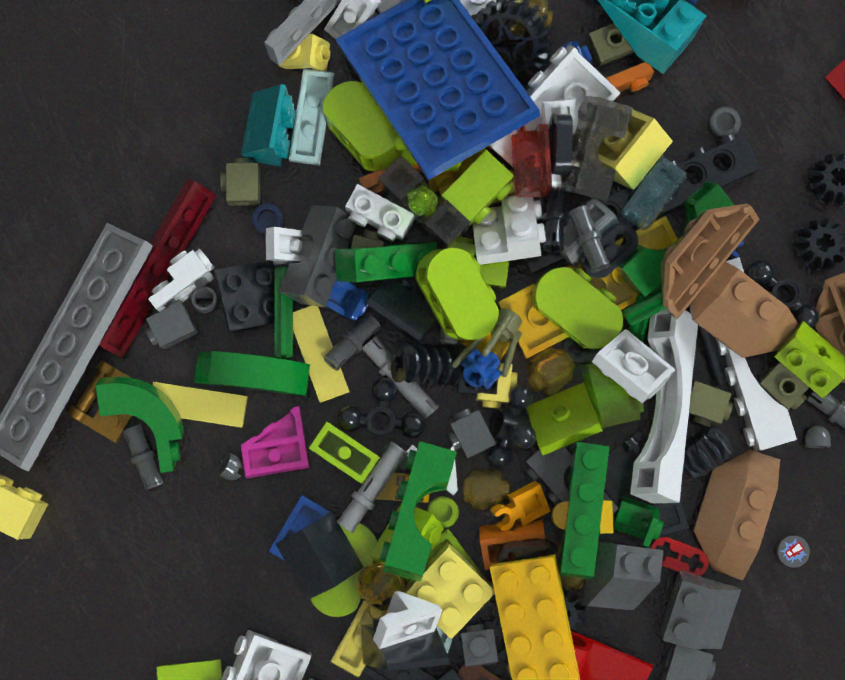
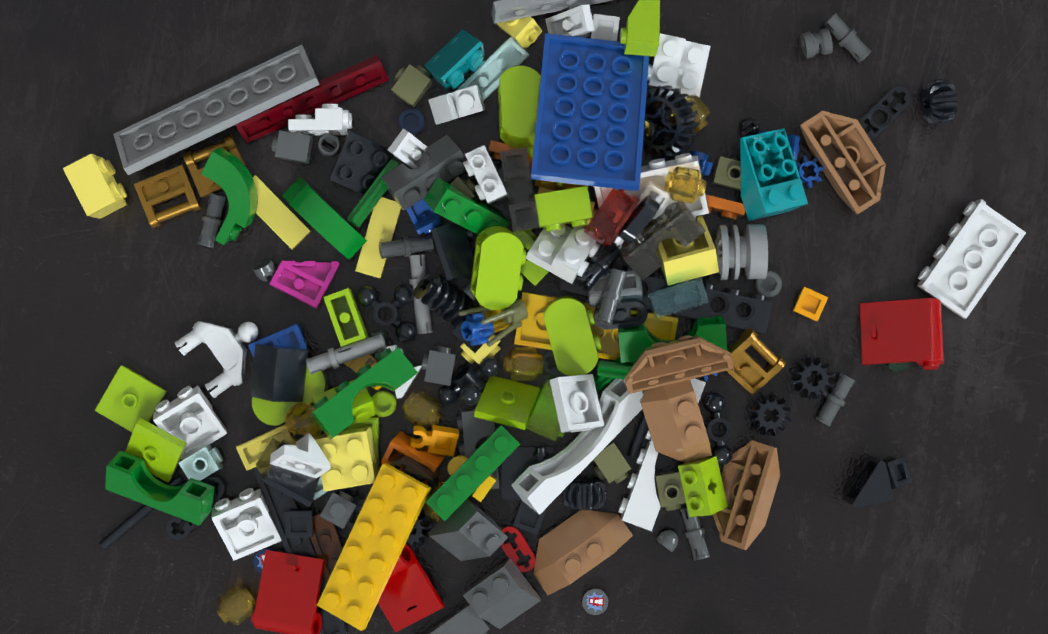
camera: 45 degrees right, 5 degrees up
(72, 461) = (163, 188): none -> pearl gold plate
(249, 572) = (226, 348): none -> white connector
(299, 170) = (456, 104): none -> white slope
(422, 201) = (517, 189): clear neon green plate -> none
(579, 78) = (684, 184): none -> clear yellow head
(638, 520) = (506, 505): green bracket -> none
(680, 106) = (742, 251): none -> light grey wheel
(774, 218) = (746, 369): none -> pearl gold plate
(779, 111) = (810, 304): none -> light orange plate

